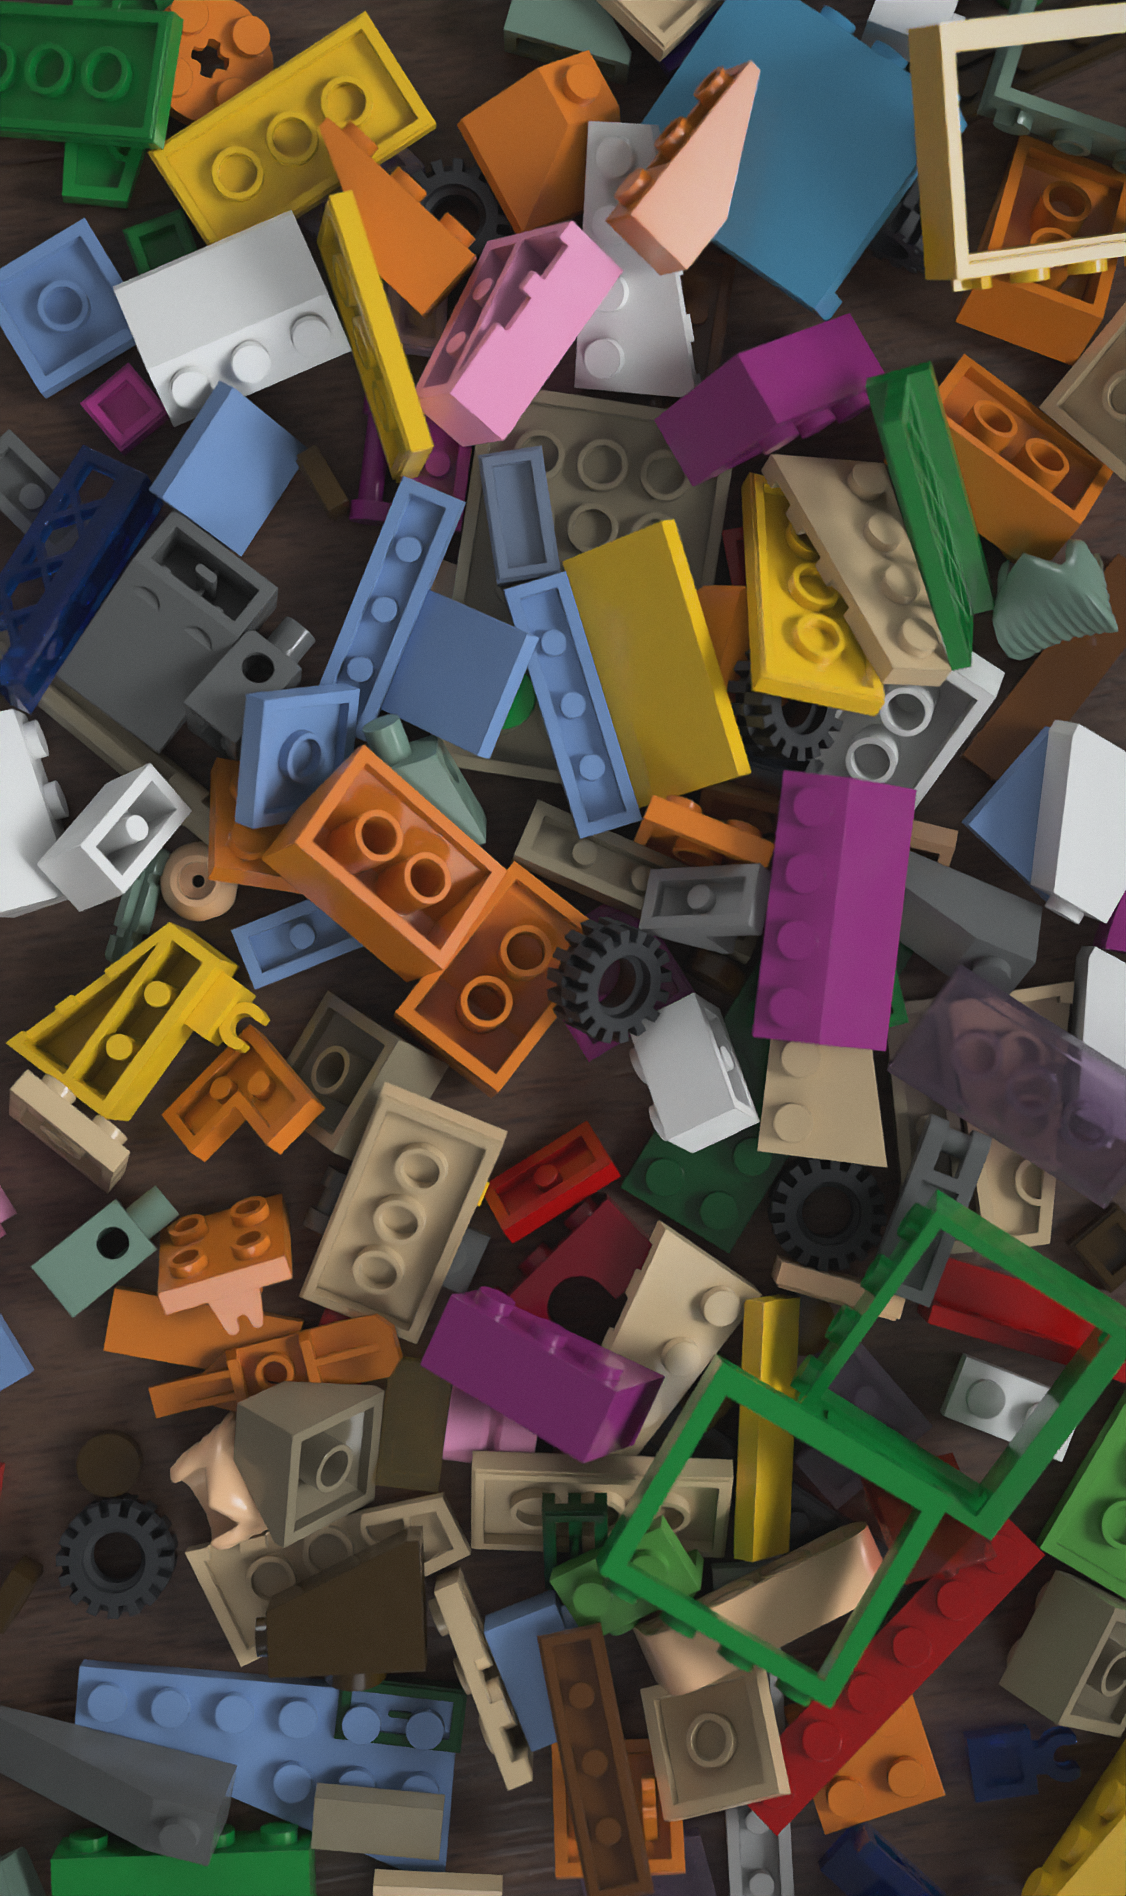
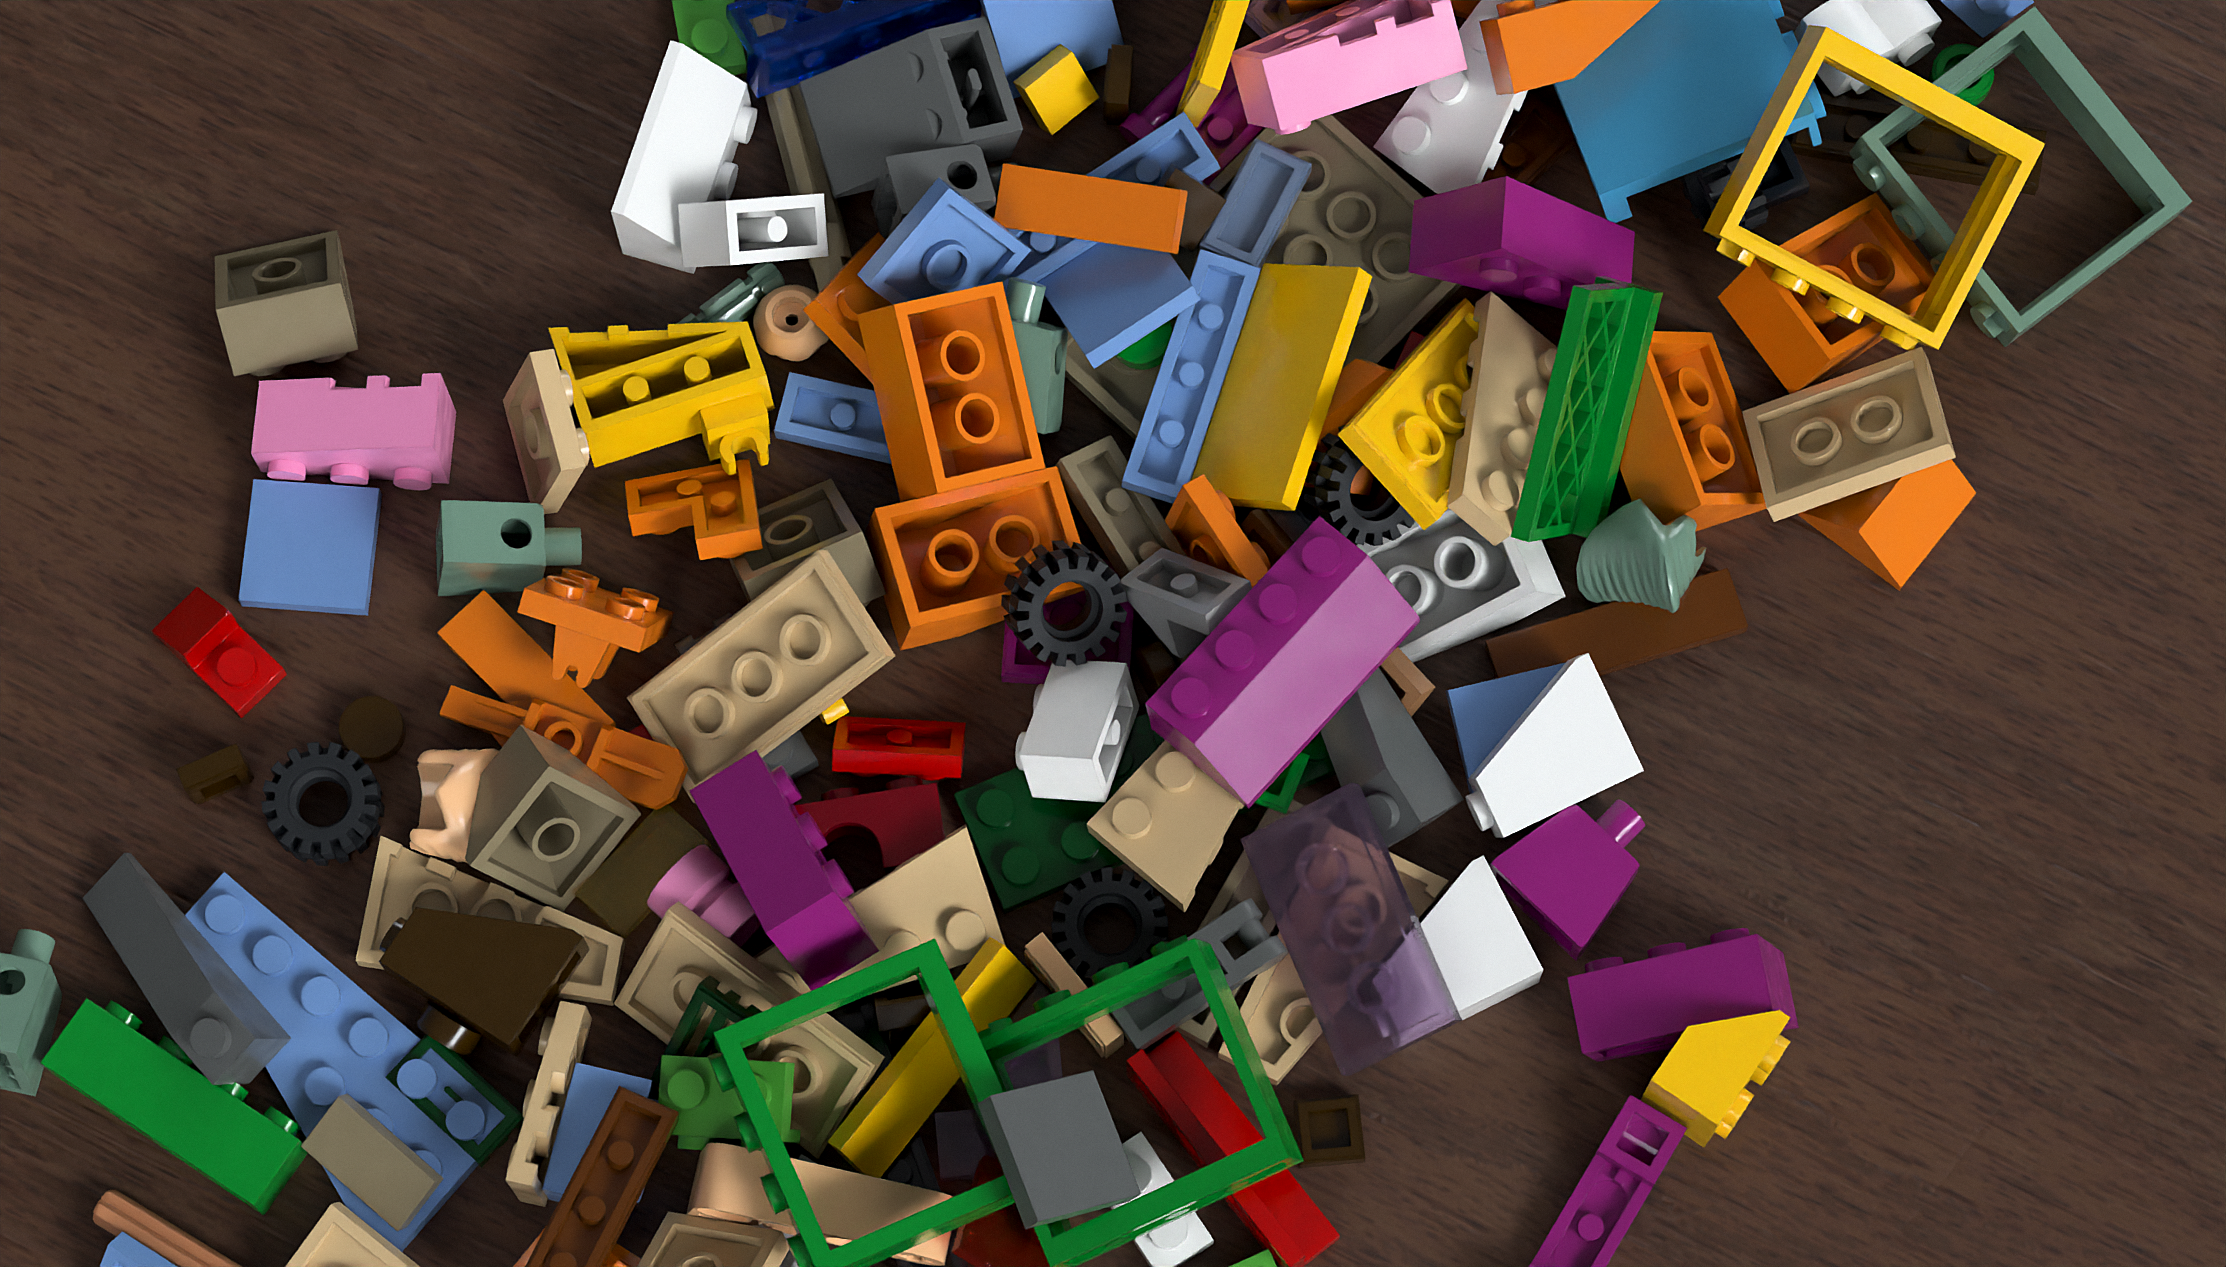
camera: 30 degrees right, 15 degrees down
(274, 524) = (1056, 89): none -> yellow tile
(387, 620) = (1090, 208): none -> orange tile
(461, 563) = (1201, 204): none -> dark brown tile
(948, 1464) = (1059, 1149): none -> dark grey tile

